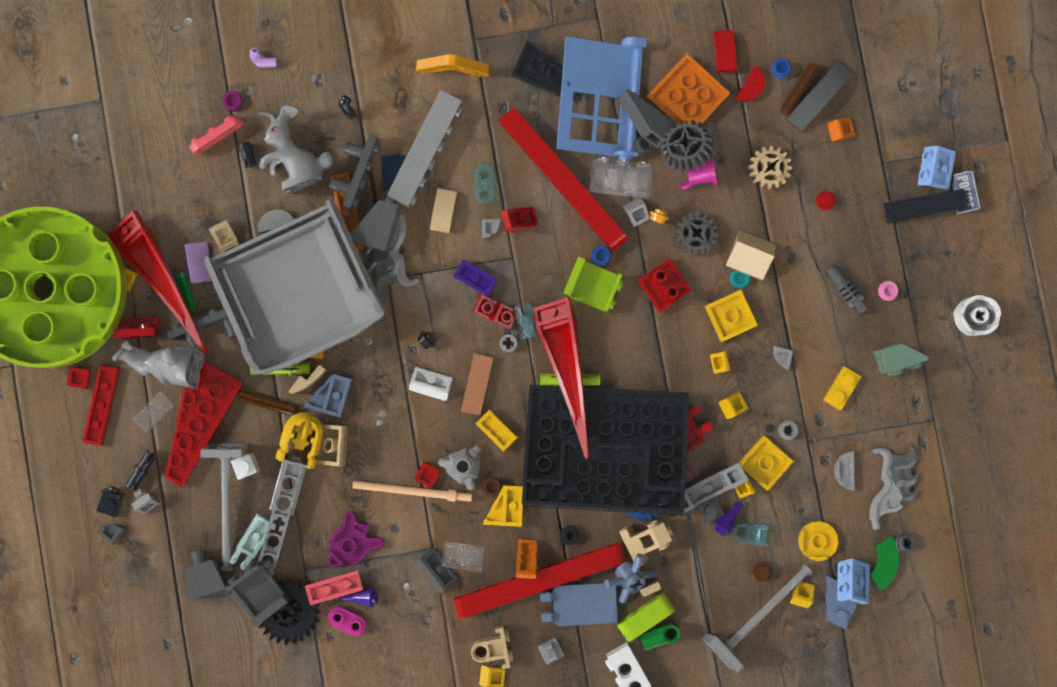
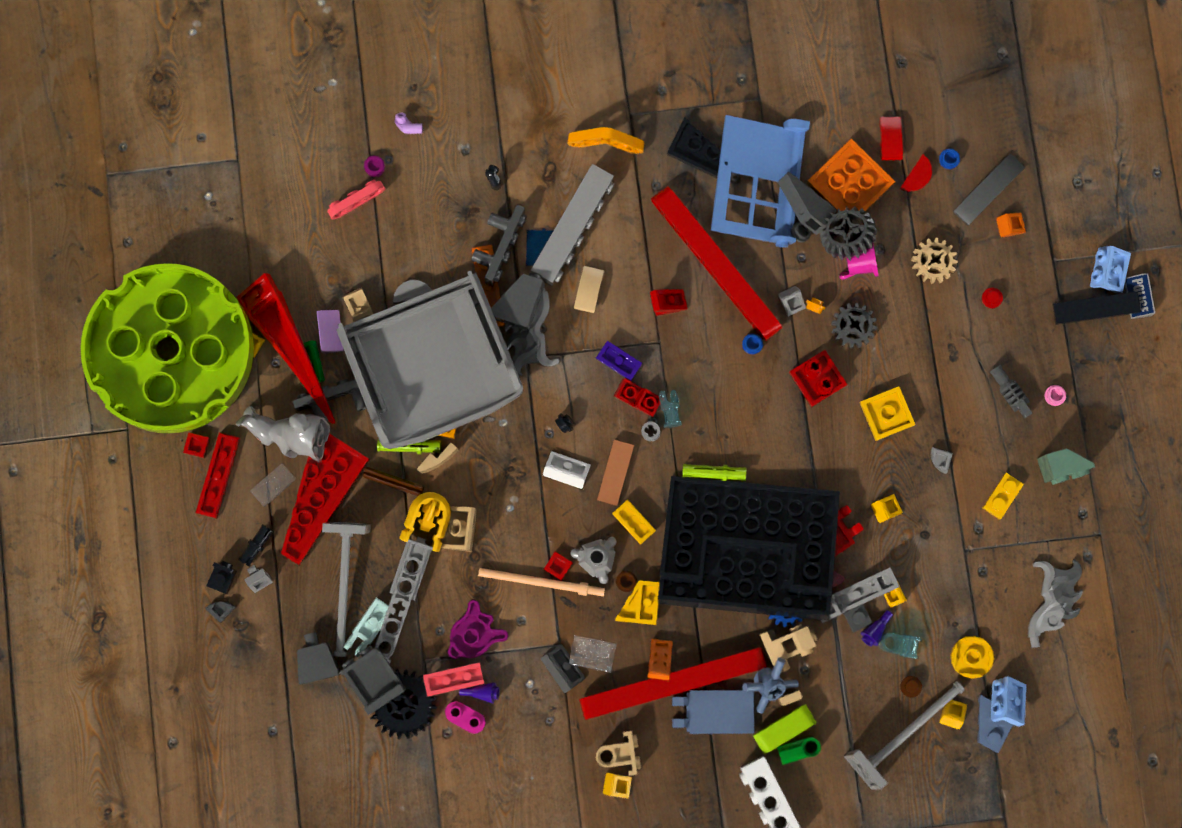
camera: 10 degrees right, 5 degrees down
(138, 328) = (262, 396): red bracket -> none
(245, 466) = (367, 546): white brick -> none
(247, 154) = (387, 222): black pin -> none
(300, 164) = (443, 234): light grey animal -> none
(331, 396) = (461, 477): sand blue wing -> none
(483, 185) = (632, 264): clear light blue plate -> none
(490, 227) = (637, 309): light grey tile -> none
(550, 650) = (681, 760): light grey tile -> none
(560, 338) = (705, 425): red plate -> none
(566, 529) = (701, 632): black plate -> none
(593, 285) = (742, 375): lime panel -> none
(621, 178) = (777, 263): clear slope -> none
(720, 362) = (874, 461): yellow slope -> none
(738, 279) = (898, 375): teal tile -> none
(751, 255) = (911, 351): tan slope -> none
(765, 462) = (919, 571): yellow tile -> none
(794, 430) = (950, 537): light grey plate -> none
(799, 89) = (968, 181): reddish brown axle -> none
(845, 470) = (1003, 583): light grey tile -> none
(886, 563) = (1045, 684): green tile -> none
(909, 542) = (1070, 663): dark grey plate -> none
(988, 316) = (1137, 421): white brick -> none

